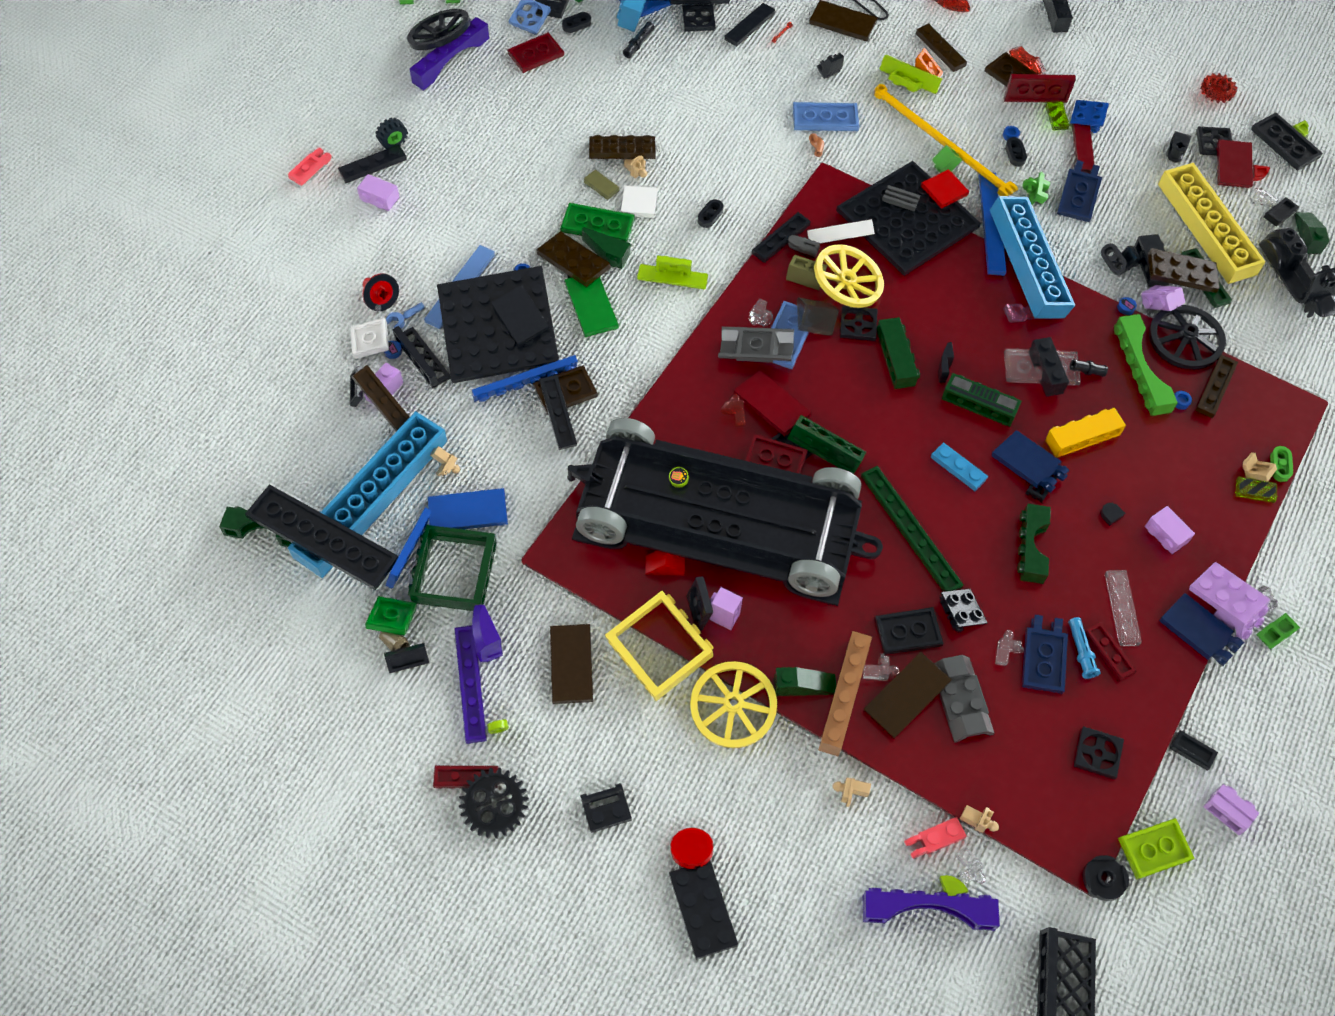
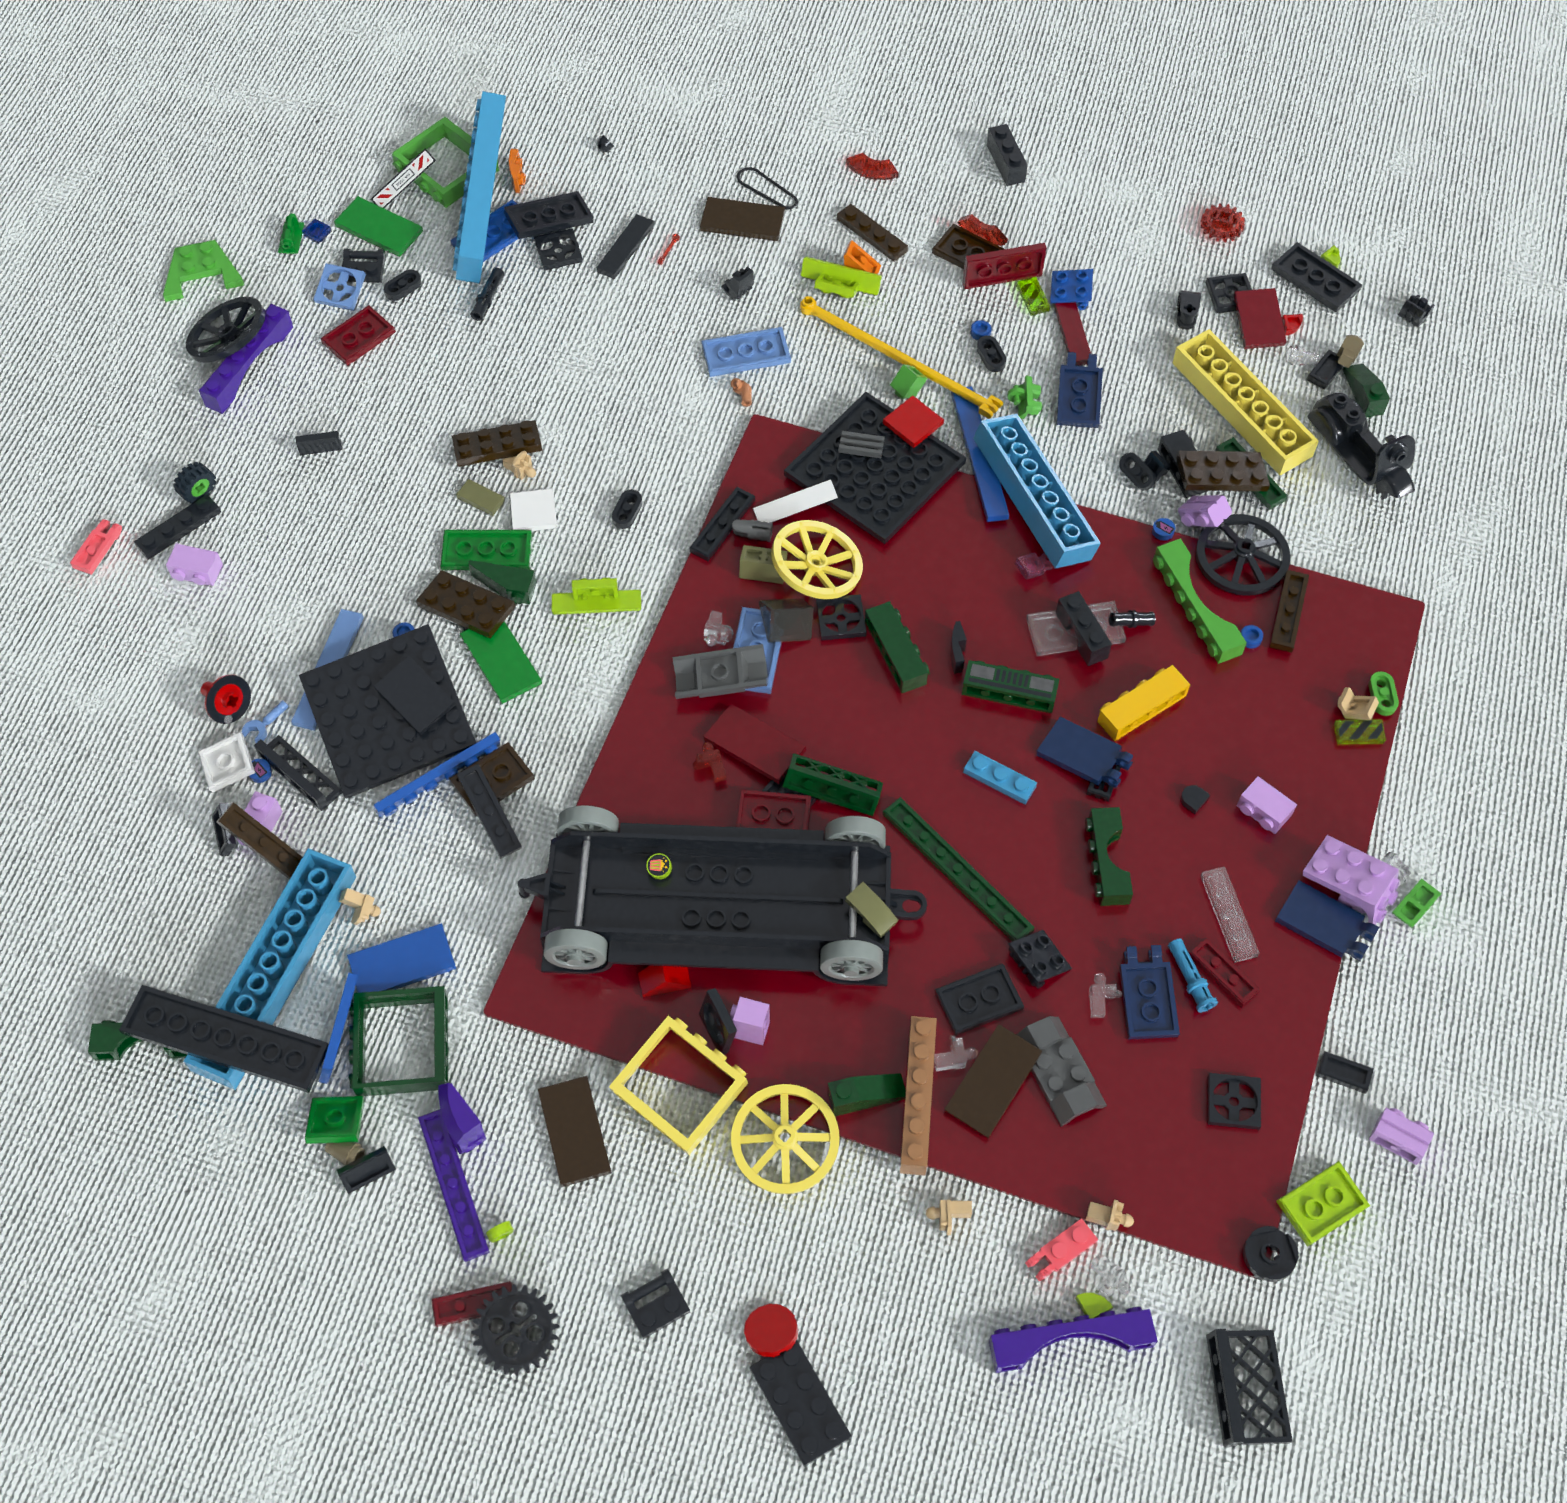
camera: 10 degrees left, 0 degrees up
(489, 123) = (319, 443): none -> black tile
(838, 543) = (872, 909): none -> olive slope
(1303, 199) = (1349, 350): none -> dark tan piece

